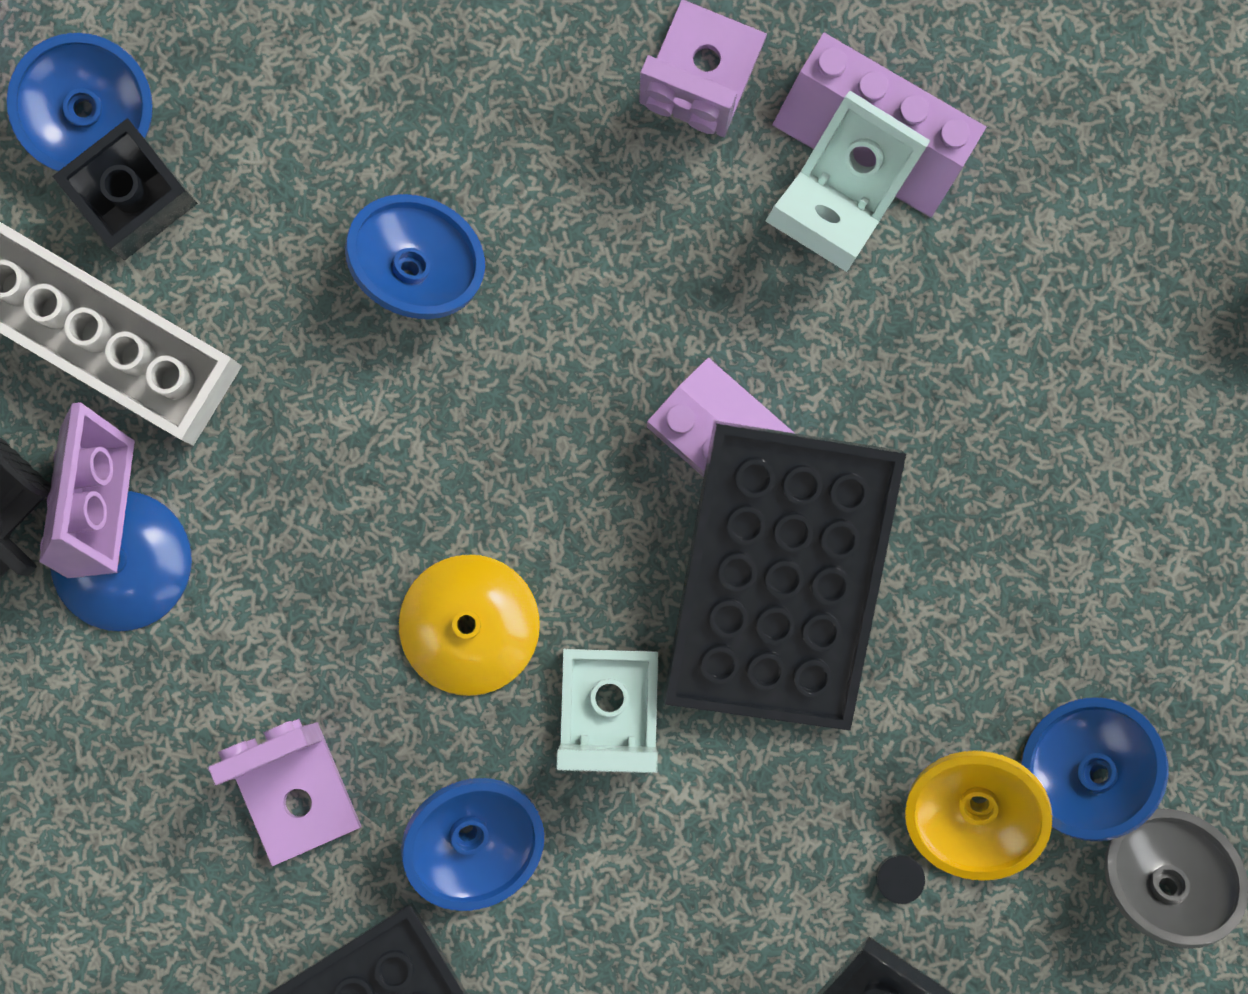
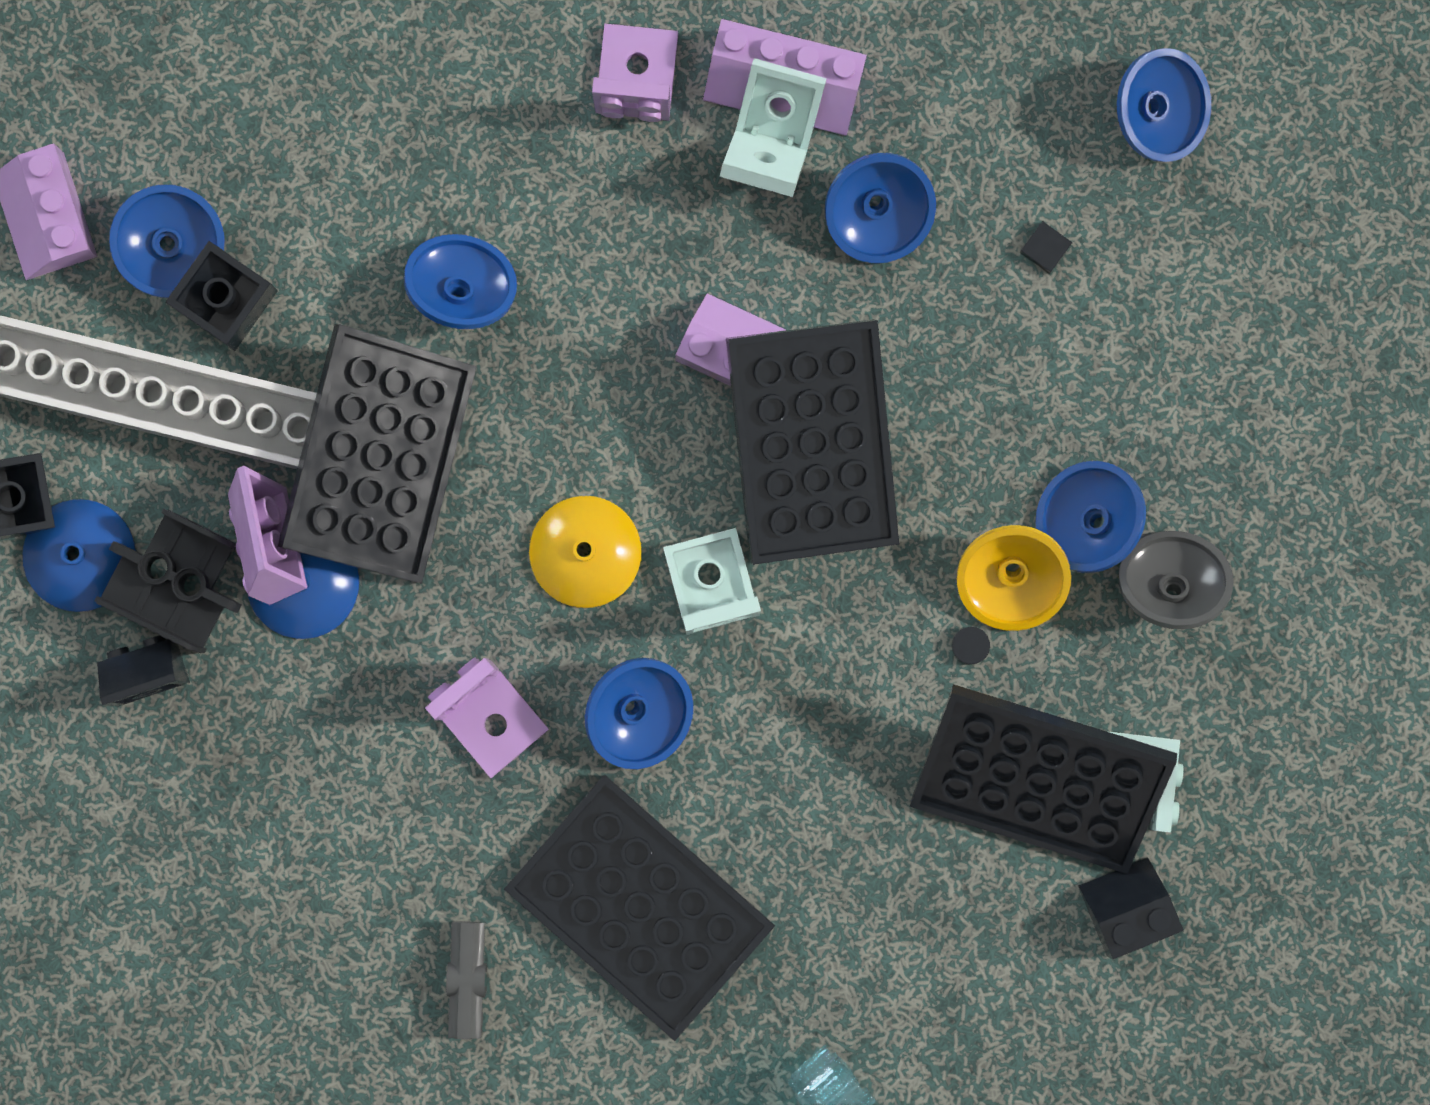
camera: 20 degrees left, 0 degrees up
(249, 436) = (377, 455): none -> black plate
(951, 343) = (894, 225): none -> blue dish
(1133, 422) = (1046, 247): none -> black tile

